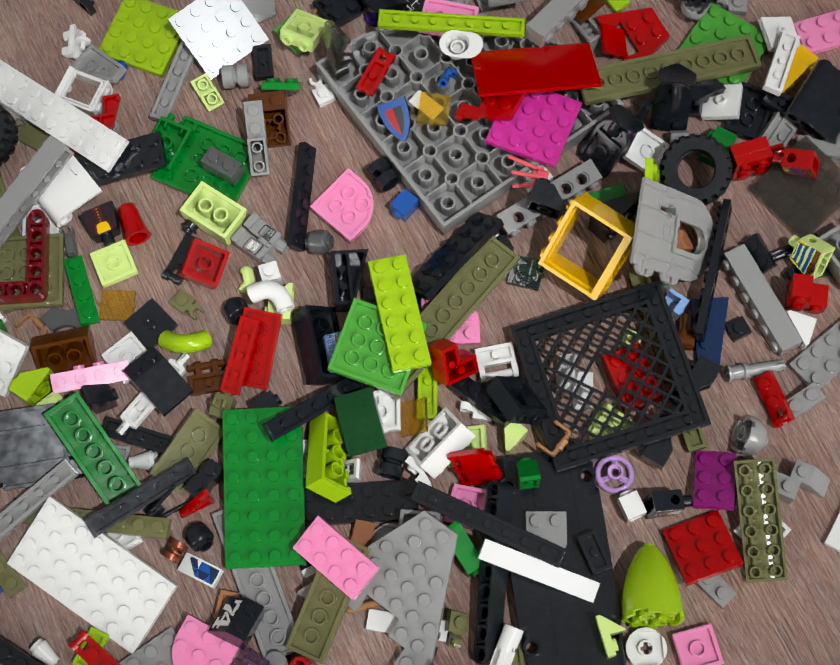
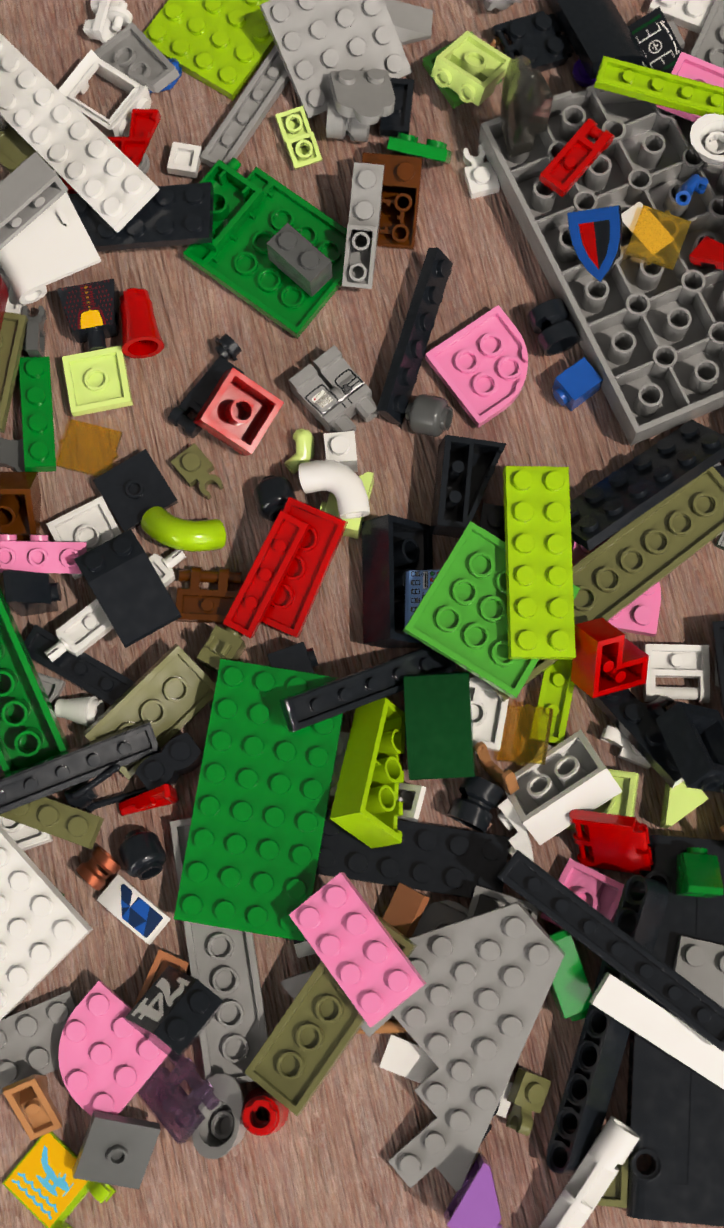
camera: 10 degrees right, 5 degrees up
(140, 120) = (184, 159): none -> white plate
(214, 213) = (270, 333): yellowish green slope -> none
(241, 59) = (362, 94): none -> light grey plate
(405, 444) = (506, 780): none -> medium nougat piece

